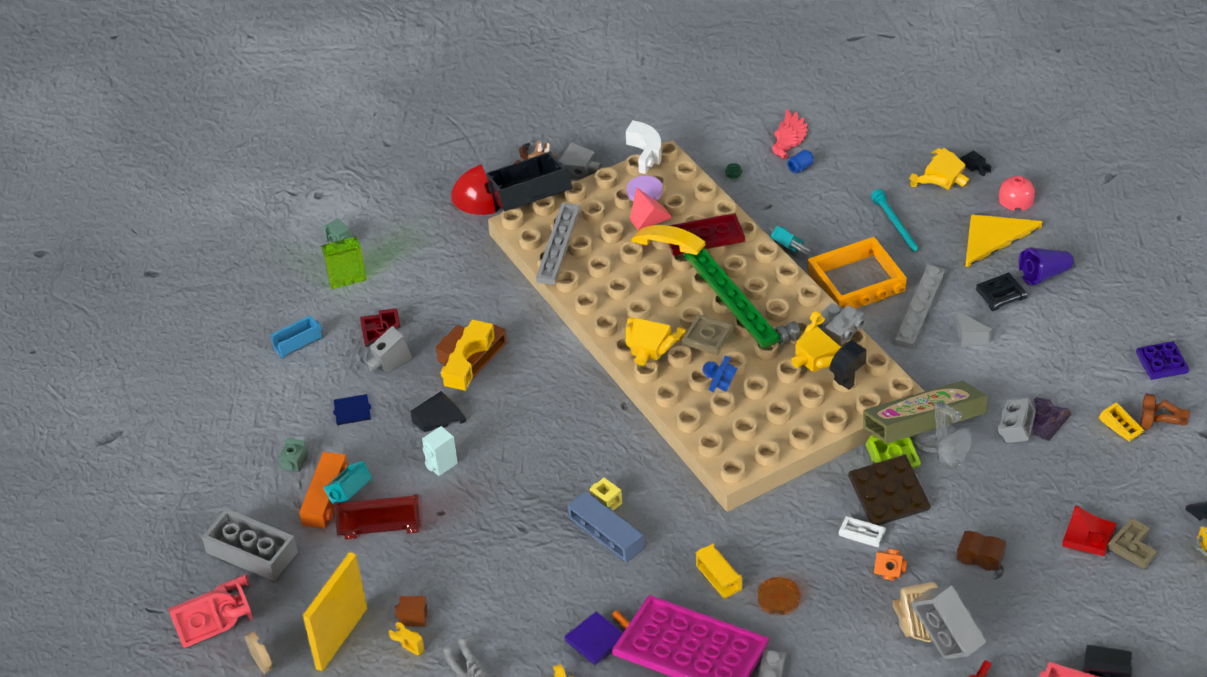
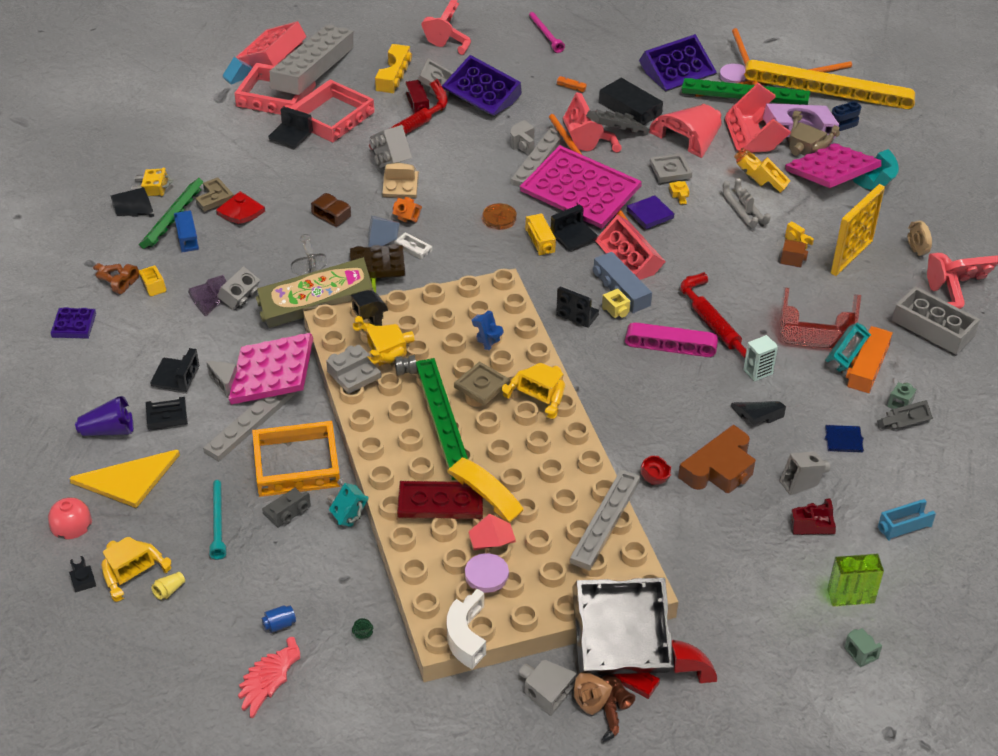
camera: 170 degrees left, 0 degrees up
(278, 441) = (906, 415): none -> dark grey hinge
(476, 338) = (712, 446): yellow arch -> none
(501, 509) = (710, 314): none -> red piece
(527, 328) = (655, 470): none -> red hair
(537, 468) = (671, 339): none -> dark pink beam
(605, 573) = (630, 247): none -> coral slope
(647, 475) = (575, 307): none -> black bracket
(682, 585) = (570, 228): none -> black bracket
(841, 236) = (287, 507): none -> dark grey bracket
(901, 165) = (167, 585): none -> light yellow cone
(907, 527) = (382, 231): none -> sand blue slope
(926, 340) = (271, 368): none -> dark pink plate
(1019, 327) = (176, 373): none -> black bracket
(1127, 483) = (186, 231): none -> blue window
(1162, 505) = (168, 218): none -> green plate

